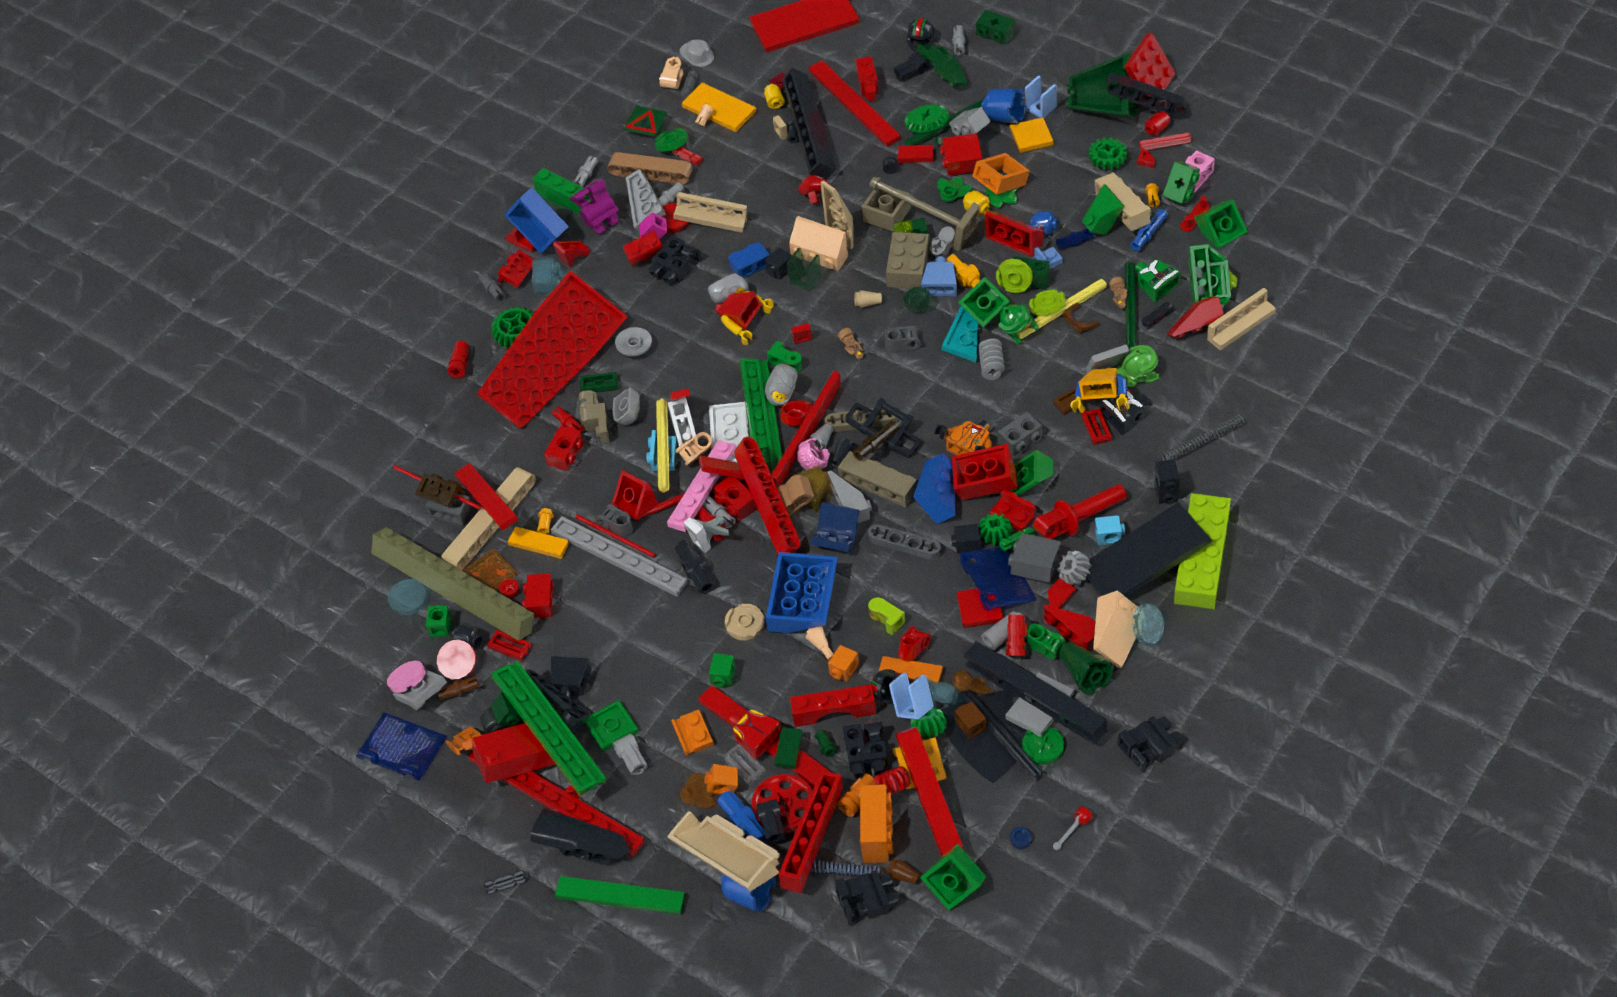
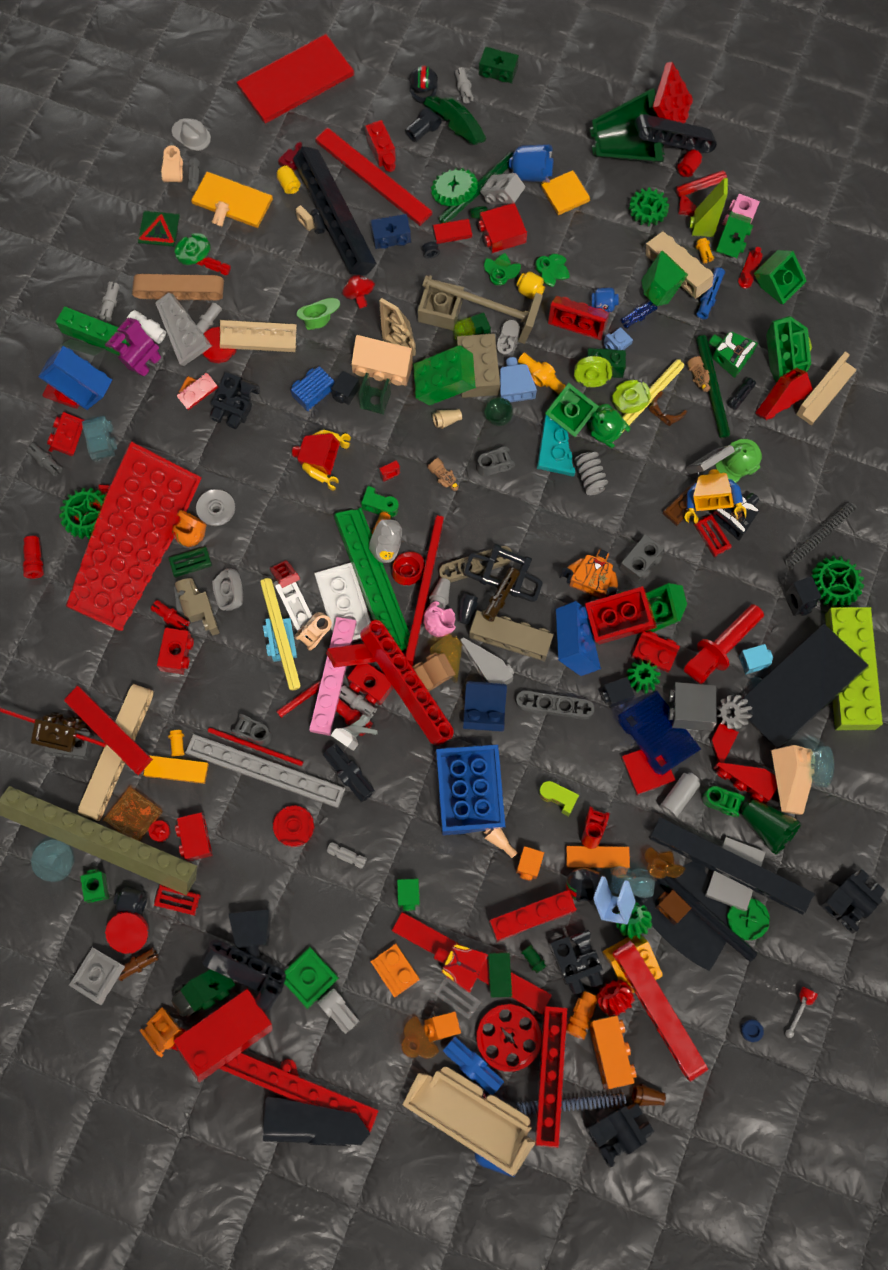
camera: 20 degrees left, 20 degrees up
(401, 745) = (93, 1043): clear blue window -> none
(406, 675) = (78, 963): bright pink tile -> none
(504, 881) = (245, 1187): black axle -> none
(548, 728) = (251, 1012): green plate -> none
(569, 250) = (119, 403): red slope -> none
(605, 355) = (189, 530): none -> orange helmet
(617, 196) = (150, 327): none -> white axle
(620, 895) = (369, 1178): green tile -> none
(632, 603) = (293, 826): none -> red tile
(633, 495) = (264, 701): red slope -> none
(653, 223) = (200, 363): dark pink brick -> none
(674, 633) = (346, 855): none -> light grey axle
(728, 285) = (299, 428): light grey piece -> none
(744, 622) = (415, 828): tan tile -> none
(770, 204) = (318, 314): none -> bright green piece
(770, 817) = (502, 1062): black piece -> none
(856, 146) = (391, 231): none -> dark blue brick
(871, 260) = (444, 375): none -> green brick
(953, 877) = (703, 1097): green slope -> none
(987, 169) = (550, 261): orange window -> none
(1007, 544) = (667, 684): green axle -> none
(1016, 631) = (697, 801): red axle -> none
(1033, 97) = (559, 148): light blue piece -> none
(1161, 160) = (709, 211): none -> lime wedge
(1208, 473) = (827, 569): none -> green gear

